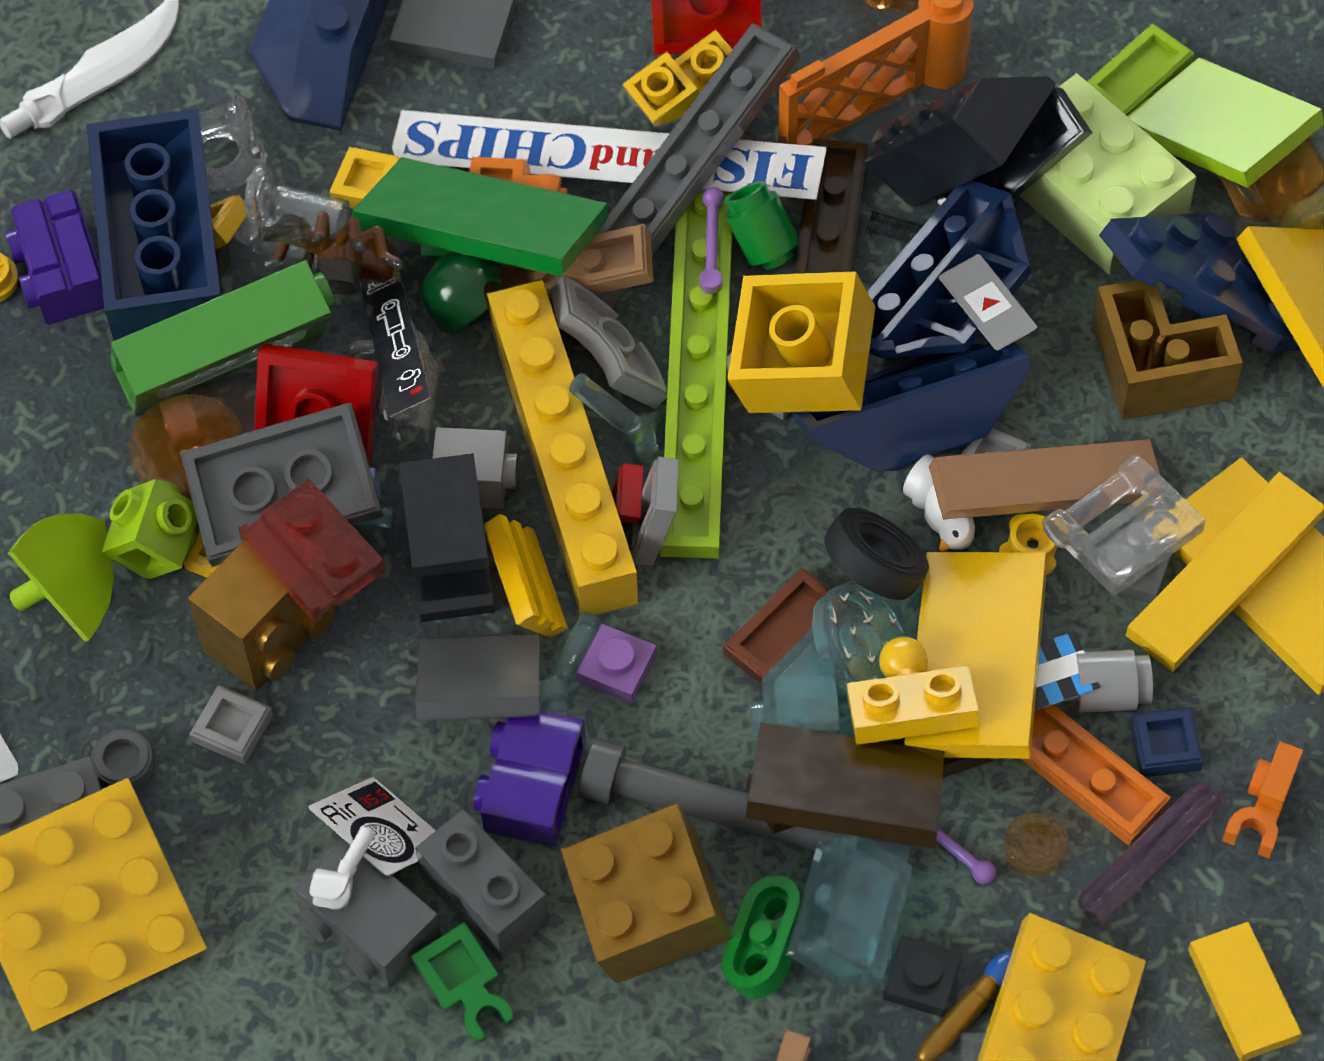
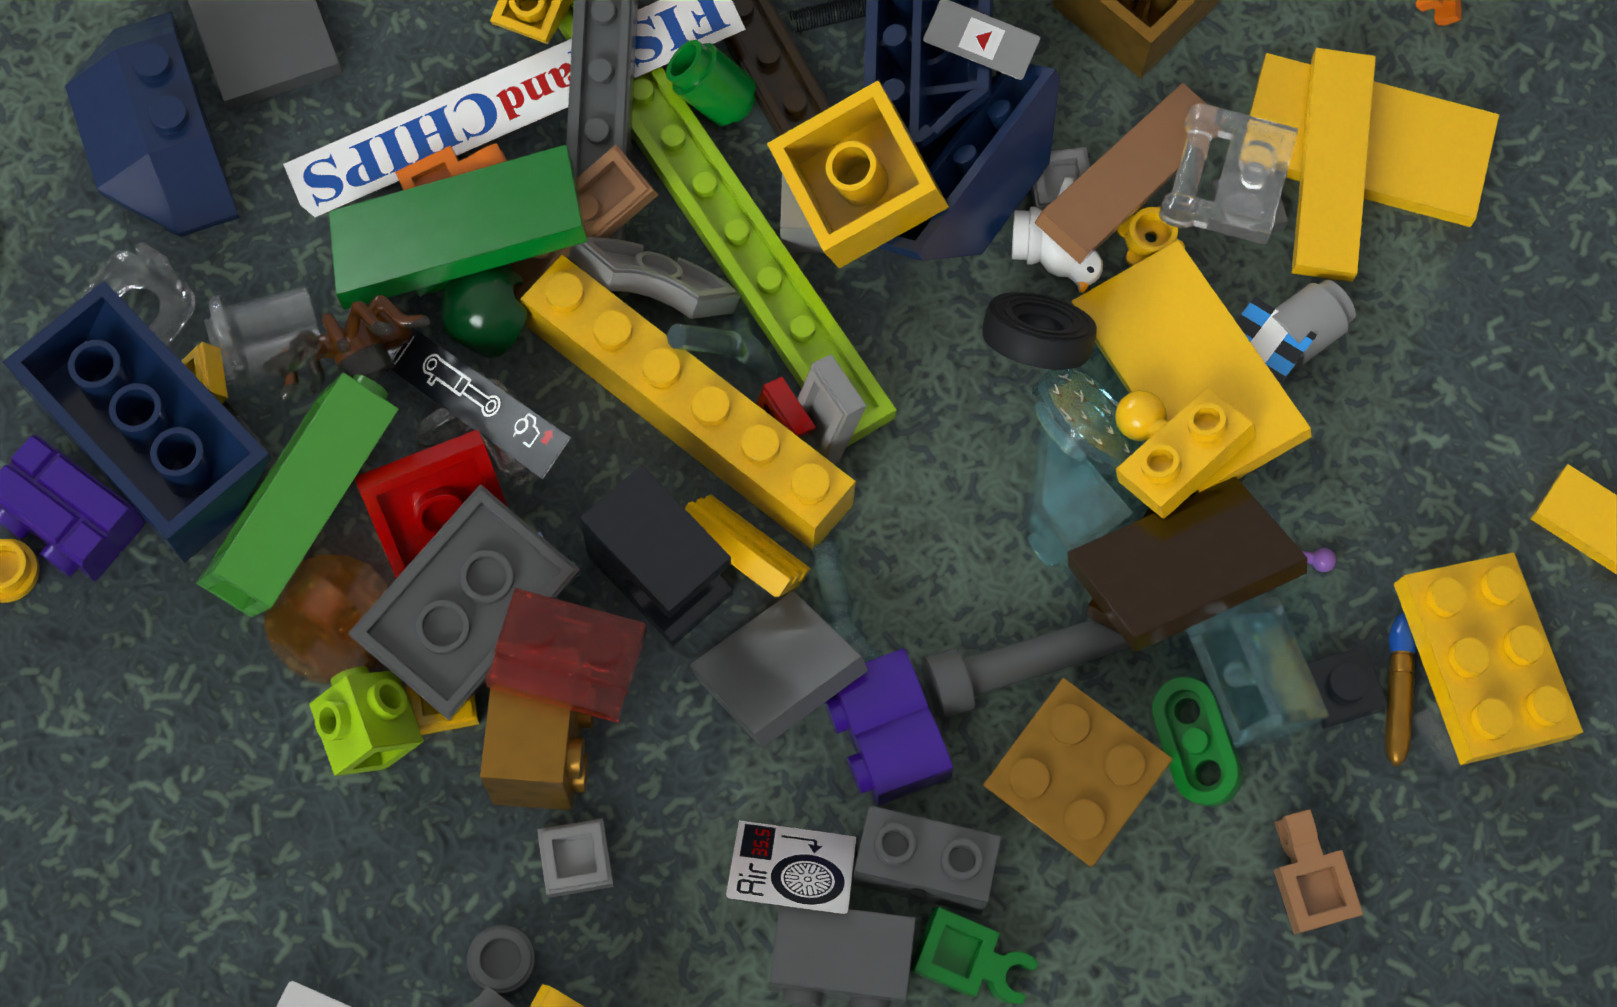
camera: 40 degrees left, 10 degrees up
(67, 569) = (313, 814): lime shield -> none
(334, 888) = (811, 959): white hand -> none
(360, 173) = (304, 252): yellow plate -> none
(494, 464) = (612, 458): light grey brick -> none
(616, 663) = (879, 573): medium lavender plate -> none
(711, 278) = (704, 159): medium lavender hinge -> none
(776, 626) = (999, 447): copper tile -> none
(1035, 844) = (1347, 507): clear orange tile -> none
(1093, 775) = (1361, 415): orange tile -> none
(1149, 852) = (1445, 455): clear purple axle -> none
(1166, 742) = (1386, 347): dark blue tile -> none
(1271, 786) = (1508, 335): orange plate -> none

